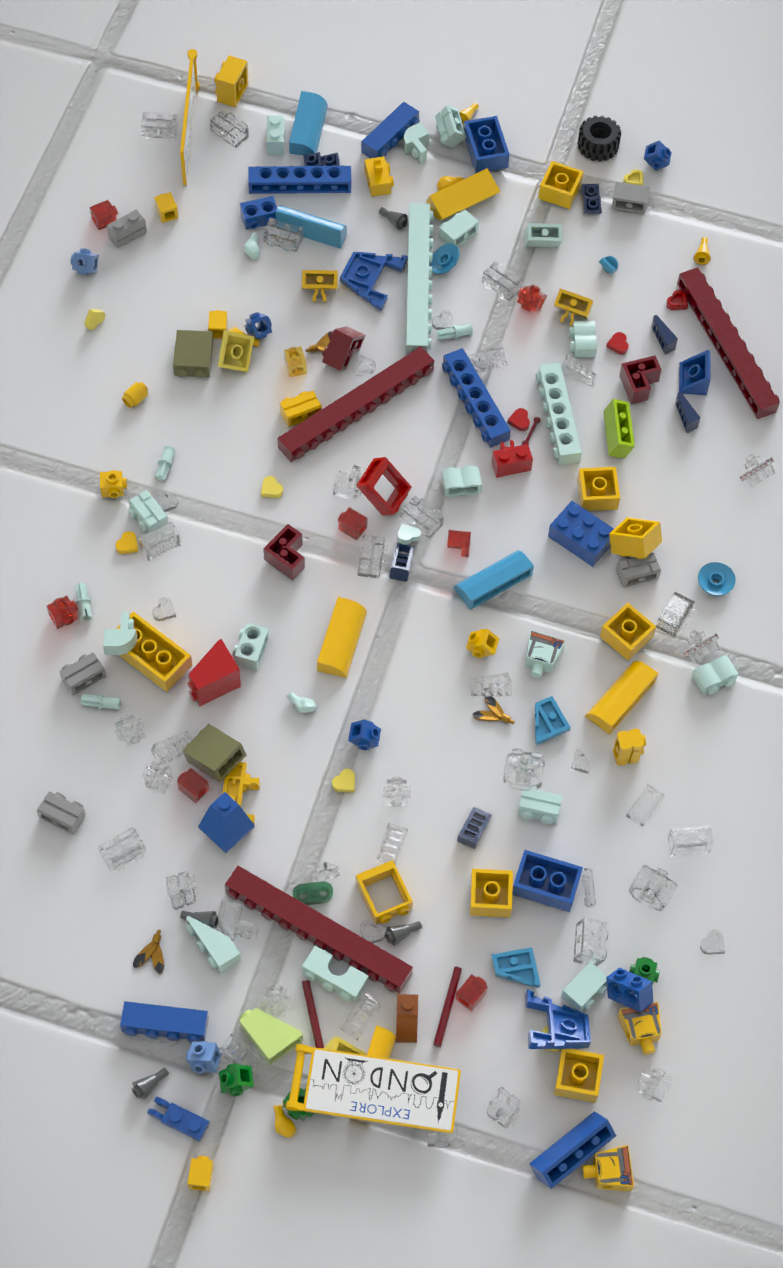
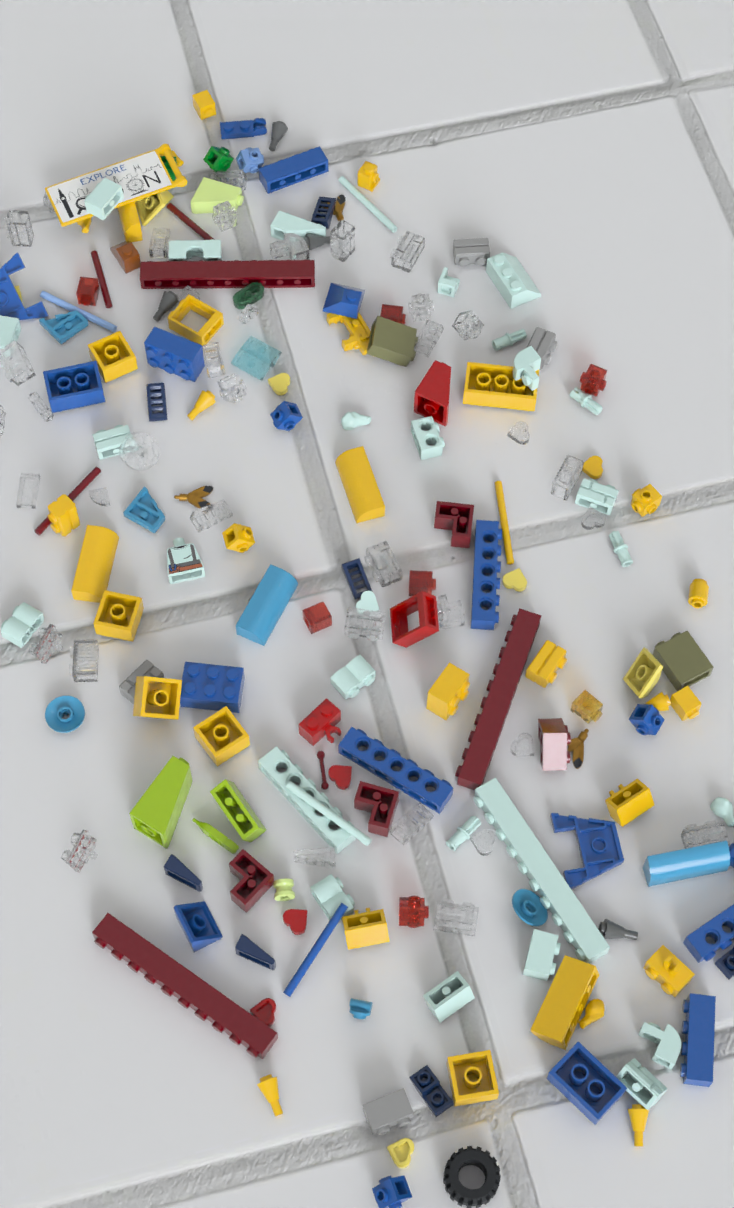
camera: 150 degrees right, 0 degrees up
(47, 759) = (511, 280): none -> light aqua slope
(92, 961) = (368, 176): none -> yellow brick
(110, 793) = (447, 285): none -> light aqua panel
(119, 962) = (367, 204): none -> light aqua piece
(183, 936) = (328, 217): none -> dark blue slope
(241, 540) = (504, 522): none -> yellow piece
(303, 498) = (482, 618): none -> blue brick
(350, 819) = (256, 358): none -> clear light blue slope
(396, 422) = (448, 691): none -> yellow brick
(401, 1064) = (104, 198): none -> light aqua brick
(429, 800) = (204, 401): none -> yellow cone
(431, 855) = (174, 354): none -> blue brick
(493, 980) = (70, 307): none -> light blue piece
(506, 375) = (380, 803): none -> dark red brick
(552, 385) = (328, 813): none -> light aqua piece
(613, 774) = (82, 485): none -> dark red piece
(614, 364) = (284, 889): none -> yellowish green wheel
(616, 312) = (315, 949): none -> blue piece
(643, 427) = (217, 836): none -> lime piece
(674, 462) = (163, 802): none -> lime slope

